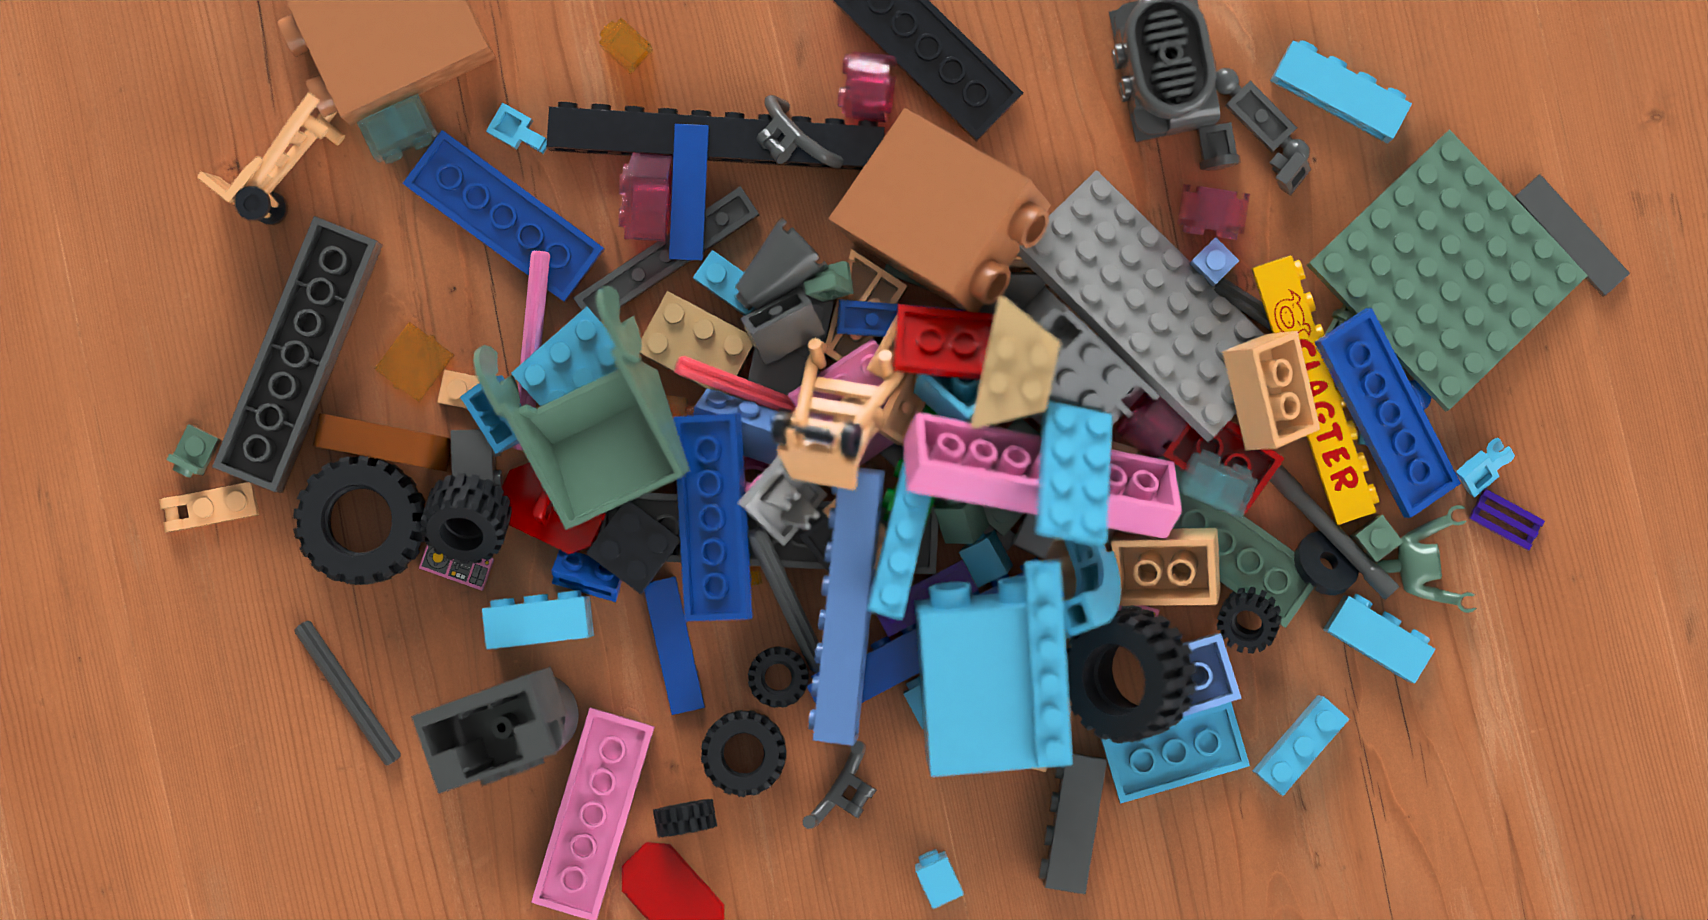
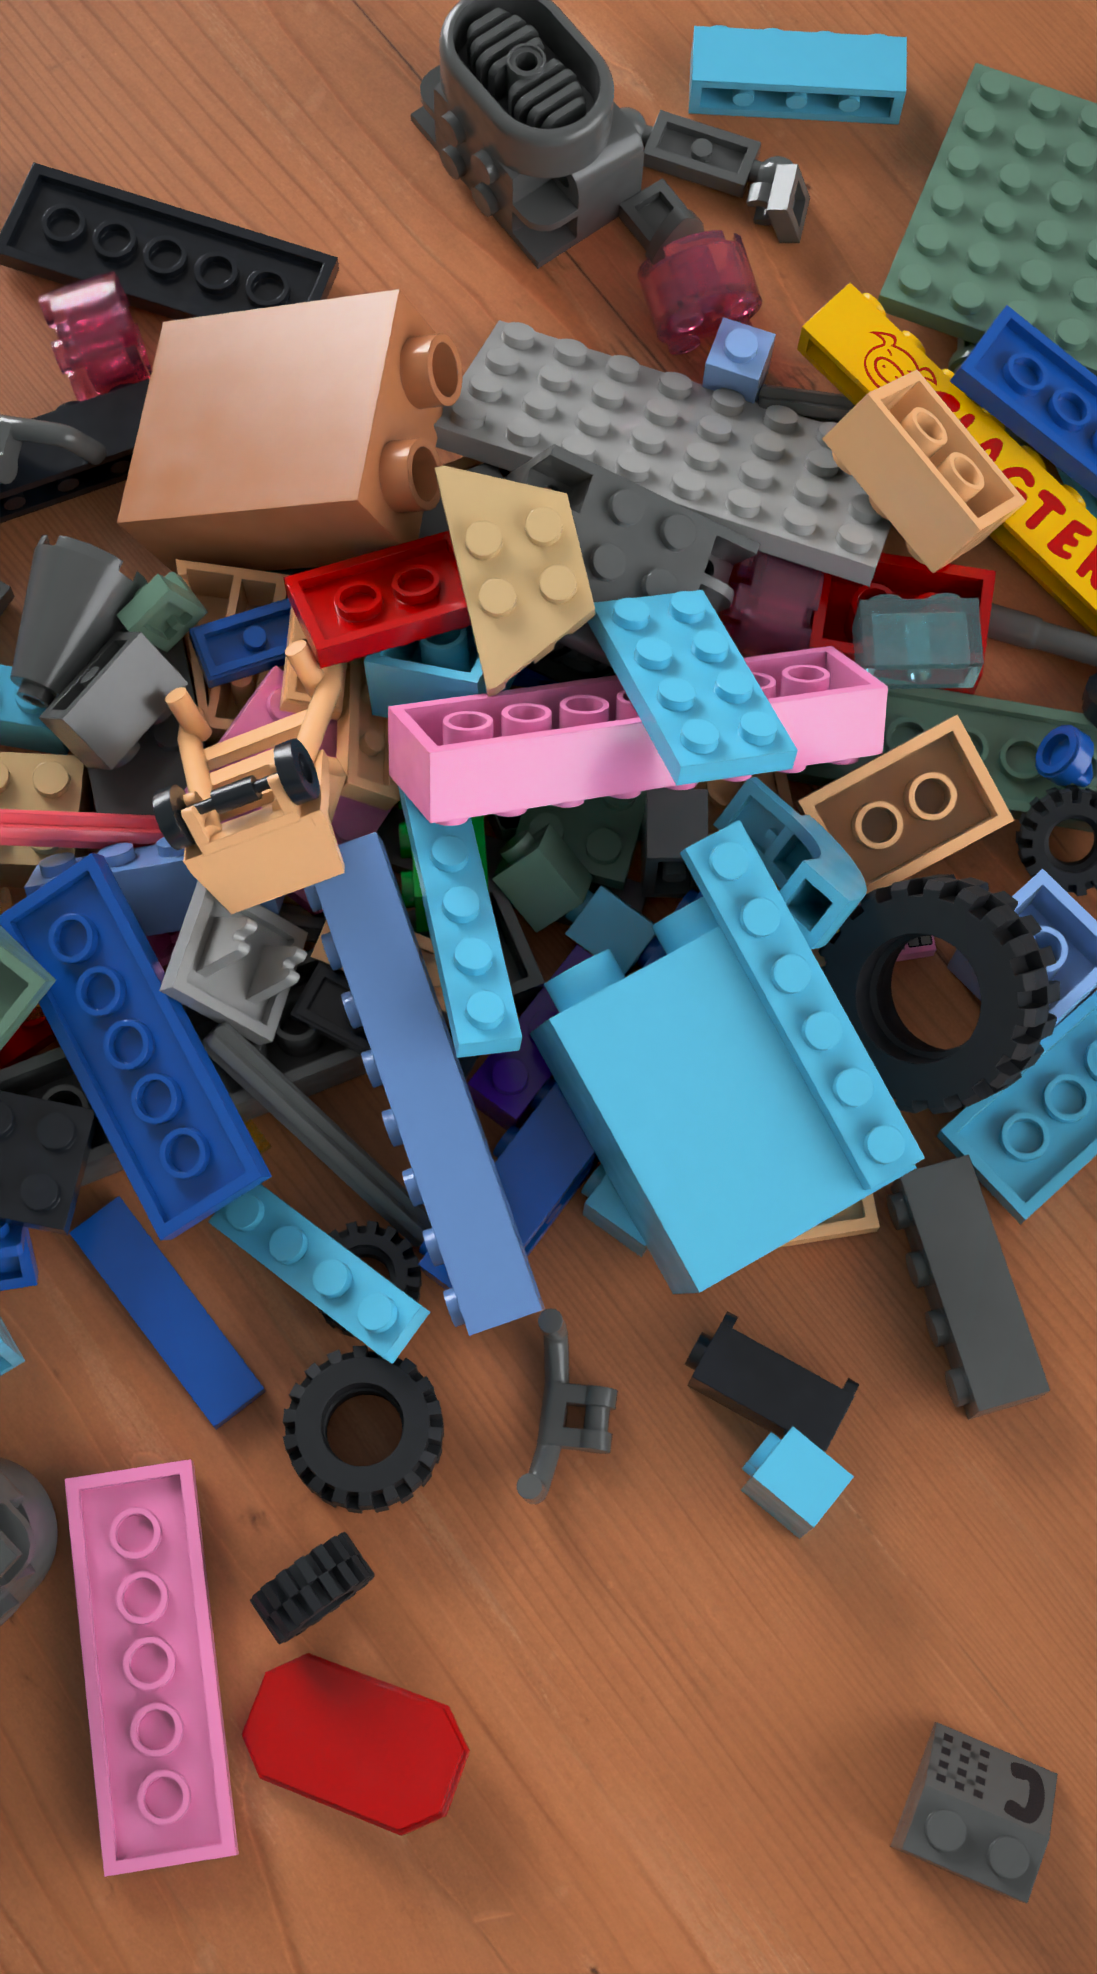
camera: 30 degrees left, 15 degrees down
(759, 672) = (322, 1270): none -> medium azure plate
(950, 824) = (767, 1385): none -> black brick
(1268, 576) = (1066, 757): none -> blue tile

